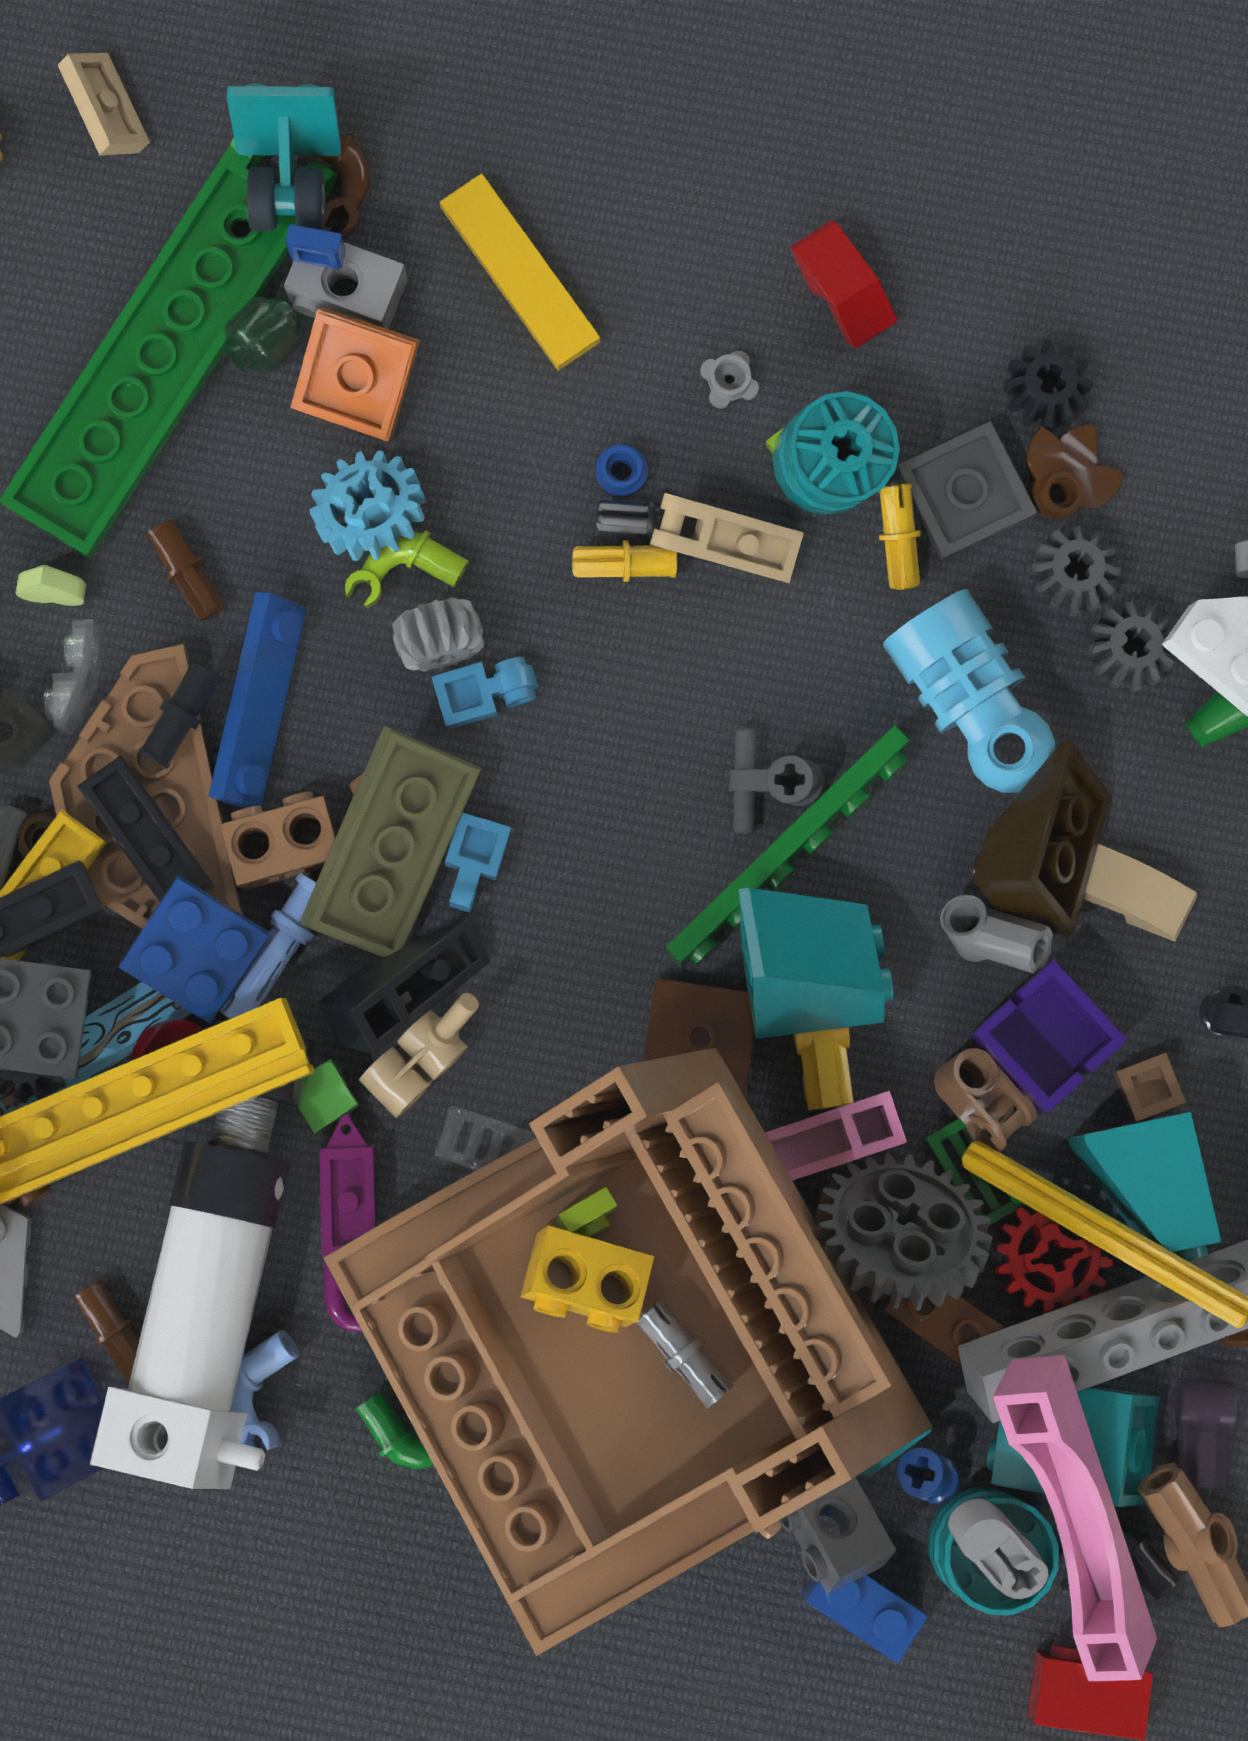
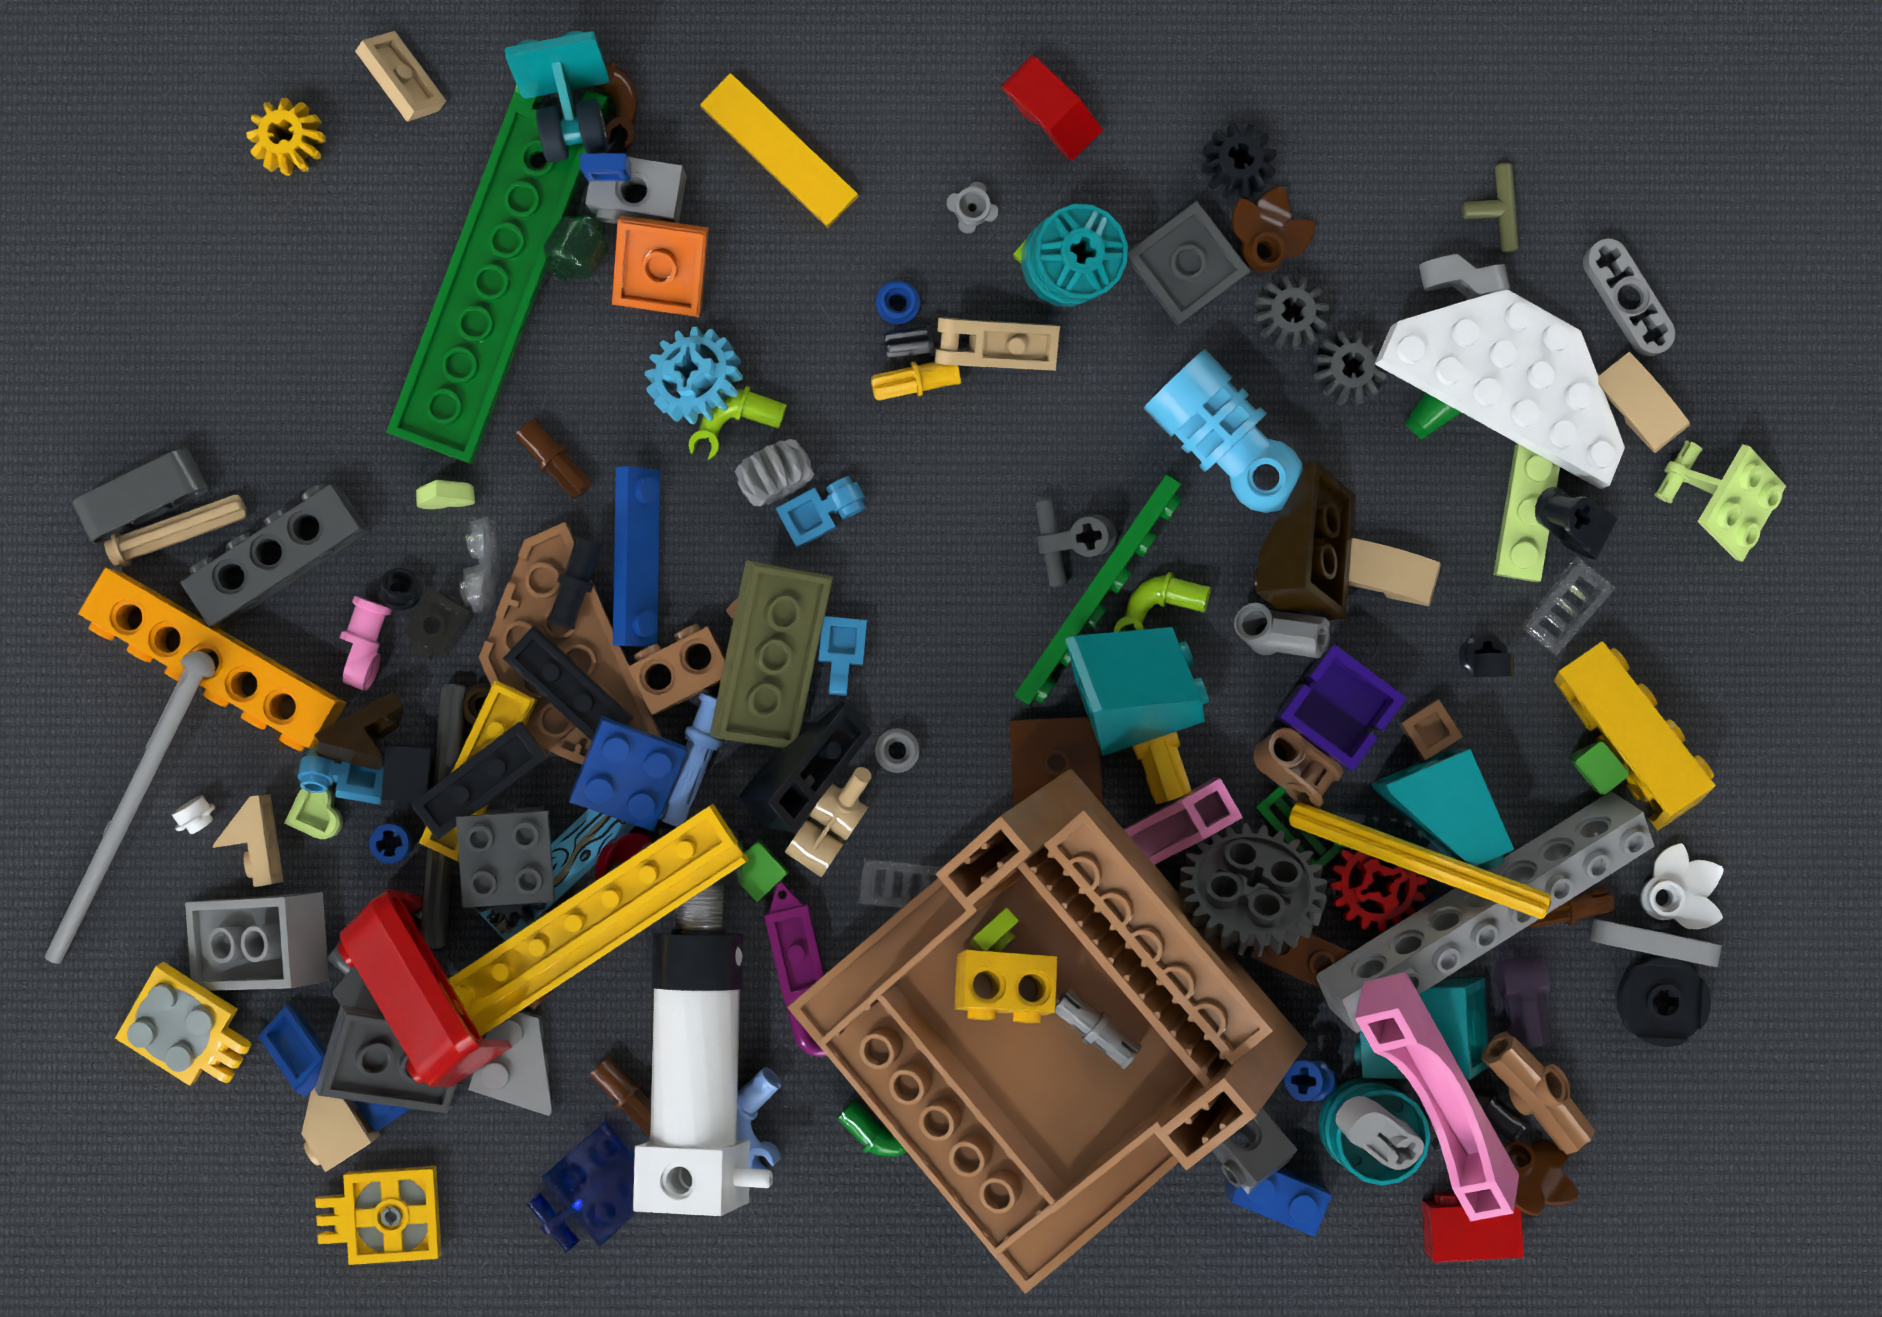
camera: 10 degrees left, 5 degrees up
(510, 971) = (882, 750): none -> light grey plate
(864, 862) = (1162, 591): none -> lime piece
(900, 536) = (1140, 313): yellow axle -> none
(1183, 1647) = (1540, 1176): none -> reddish brown plate

